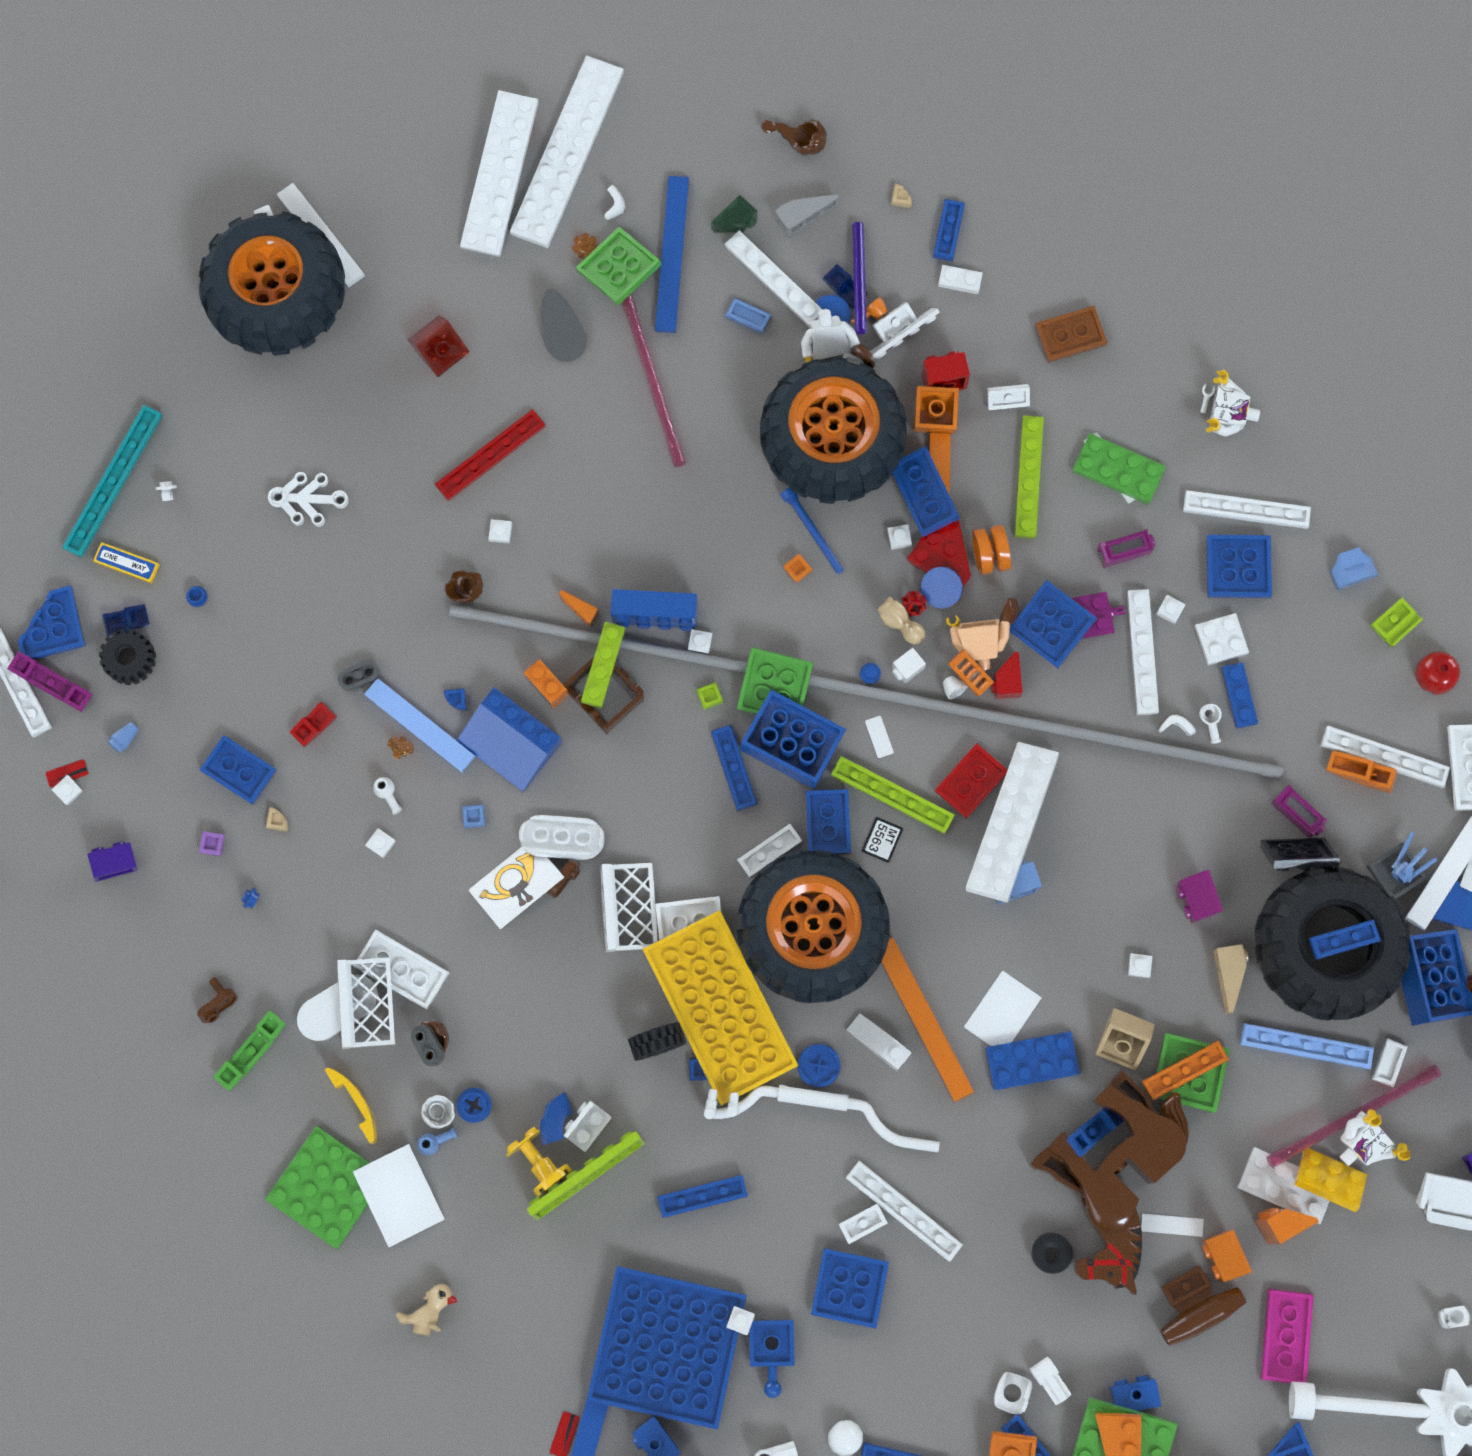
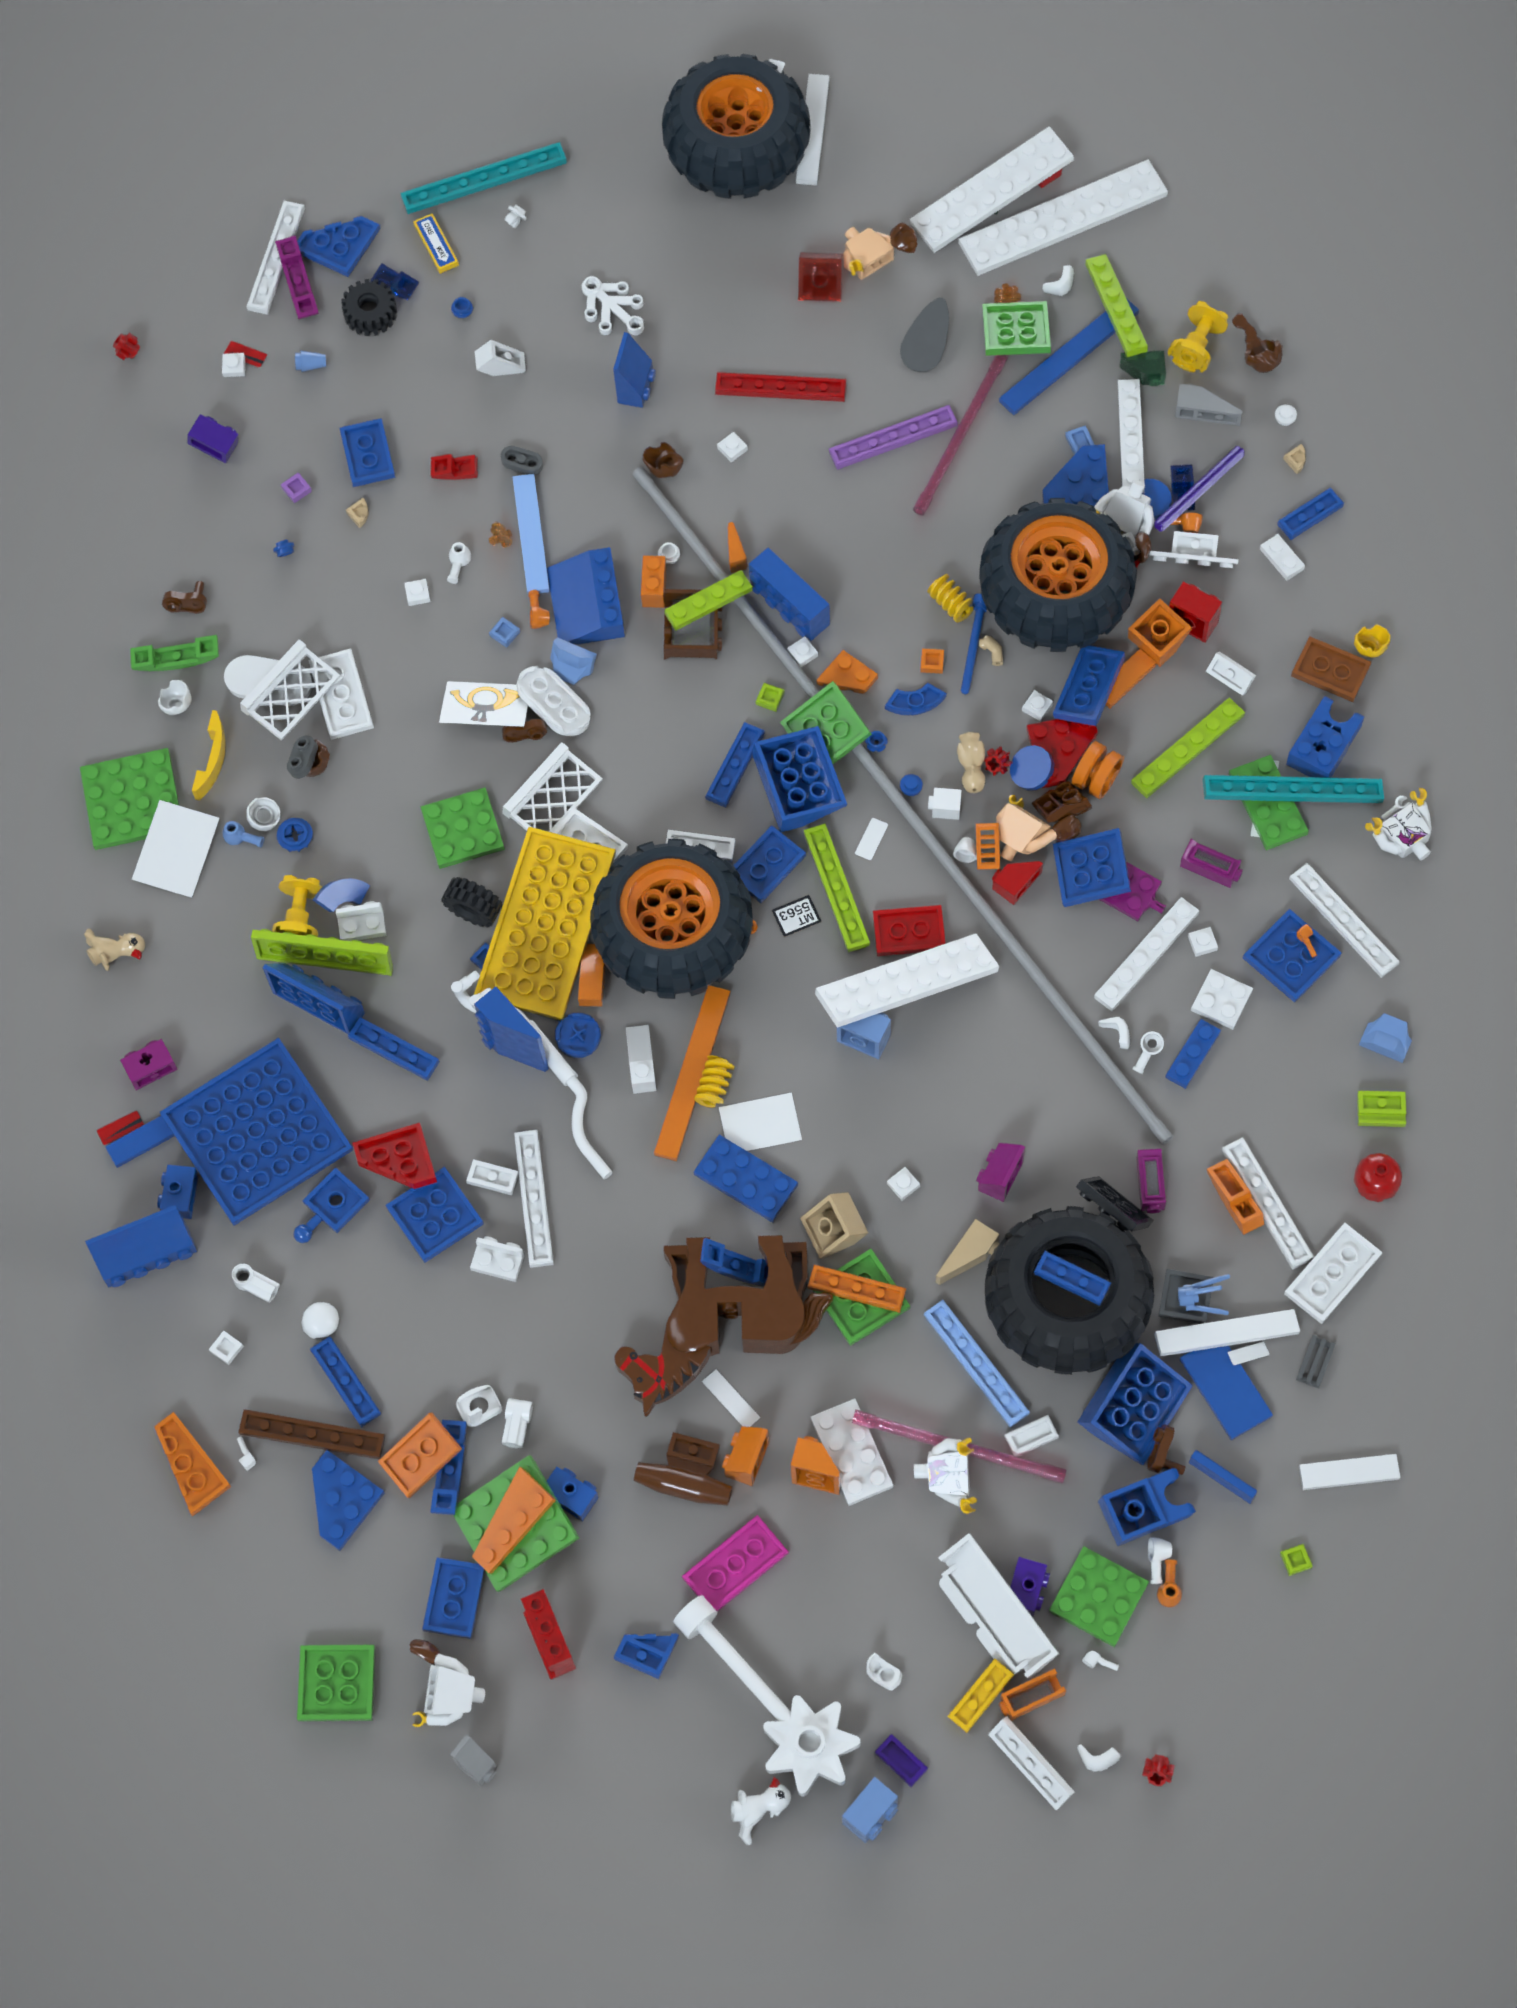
camera: 45 degrees right, 10 degrees down
(266, 613) = (499, 359): none -> white slope
(284, 1084) = (175, 698): none -> white hair
(381, 540) = (632, 373): none -> blue slope
(456, 698) = (578, 538): blue tile -> none
(457, 291) = (872, 250): none -> light nougat torso
(487, 783) = (538, 616): none -> orange bar
(534, 652) = (670, 552): none -> white plate
(545, 796) = (571, 661): none -> medium blue slope
(549, 1361) = (160, 1064): none -> magenta brick
(588, 989) = (462, 828): none -> bright green plate
(607, 423) = (893, 437): none -> medium lavender tile
(612, 1211) = (314, 996): none -> blue slope
(672, 188) = (1116, 305): none -> lime plate
(740, 1320) = (328, 1159): white plate -> none
(747, 630) = (848, 674): none -> orange wing
(759, 178) = (1191, 352): none -> yellow piece
(767, 510) = (950, 598): none -> yellow piece
(772, 344) = (1081, 478): none -> blue plate
(779, 1113) = (509, 1031): none -> blue slope
(785, 1271) = (398, 1156): none -> red plate
(789, 1016) = (591, 978): none -> orange slope
(813, 609) = (915, 701): none -> blue tile
(821, 662) = (876, 736): none -> blue plate
(829, 520) = (991, 644): none -> tan arm
(864, 170) = (1285, 414): none -> white plate
(923, 1279) = (497, 1258): none -> white bracket
(947, 1013) = (712, 1081): none -> yellow piece
(987, 596) = (1061, 802): none -> reddish brown slope
(1064, 1253) = (611, 1317): black tyre -> none
(1080, 289) = (1372, 641): none -> yellow hair
(1114, 387) = (1323, 742): none -> blue brick
(1132, 446) = (1293, 789): none -> teal plate
(1236, 545) = (1303, 935): none -> orange hand
(1331, 1179) = (890, 1475): yellow plate -> none

